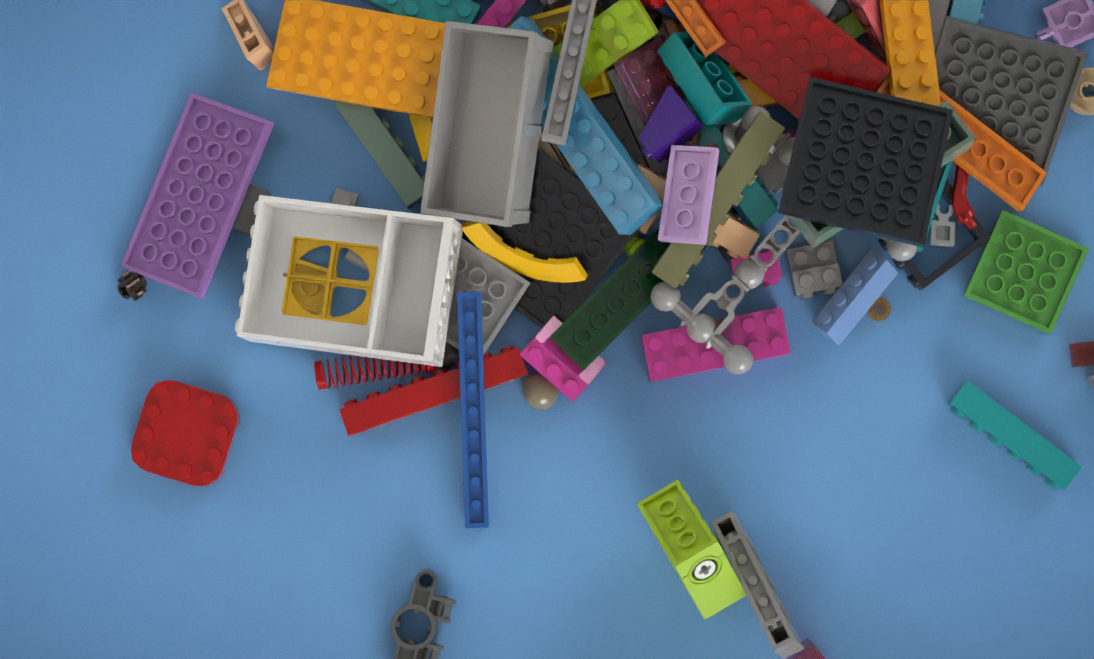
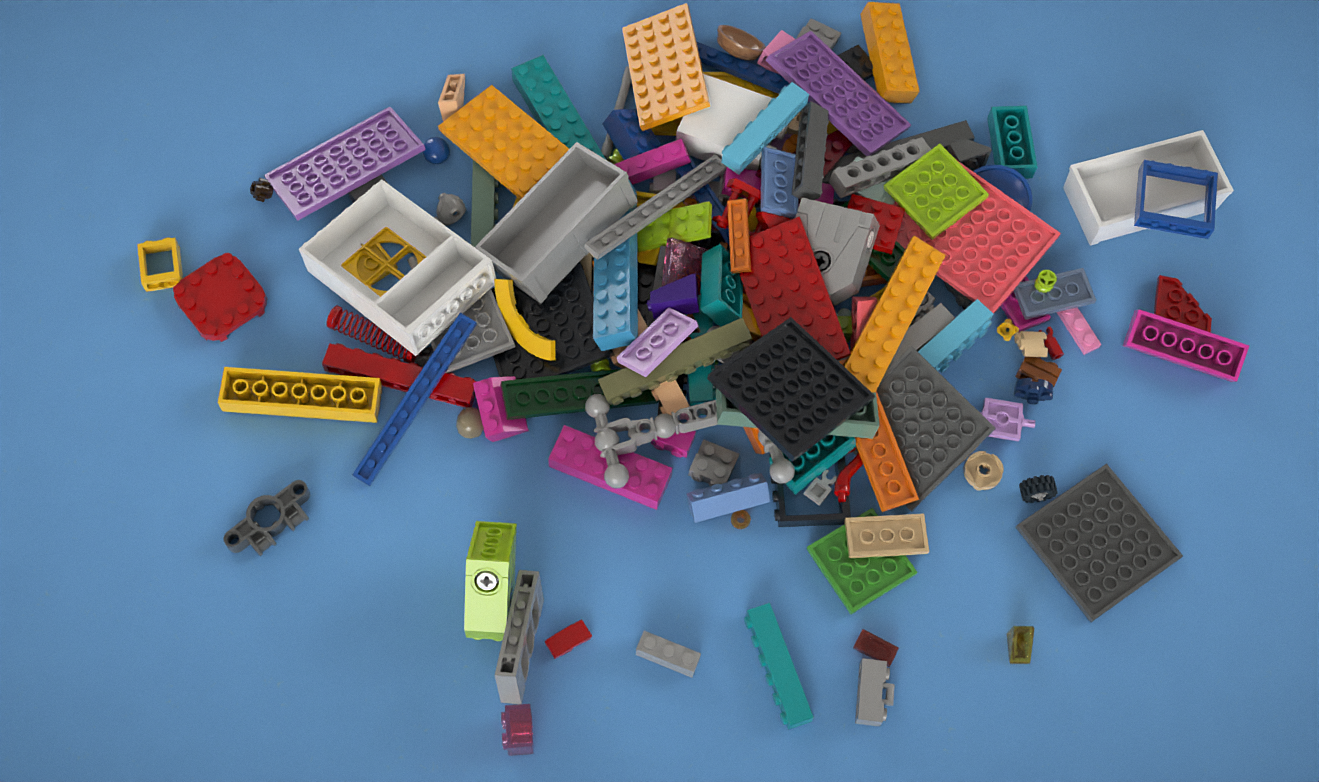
camera: 25 degrees right, 20 degrees down
(110, 457) = (162, 280): none -> yellow window
(279, 109) = (436, 150): none -> blue hair
(347, 170) = (447, 206): none -> light grey helmet
(351, 482) = (300, 394): none -> yellow brick
(794, 545) = (568, 638): none -> red slope
(901, 496) = (668, 654): none -> light grey brick
(1037, 232) = (886, 535): none -> tan plate

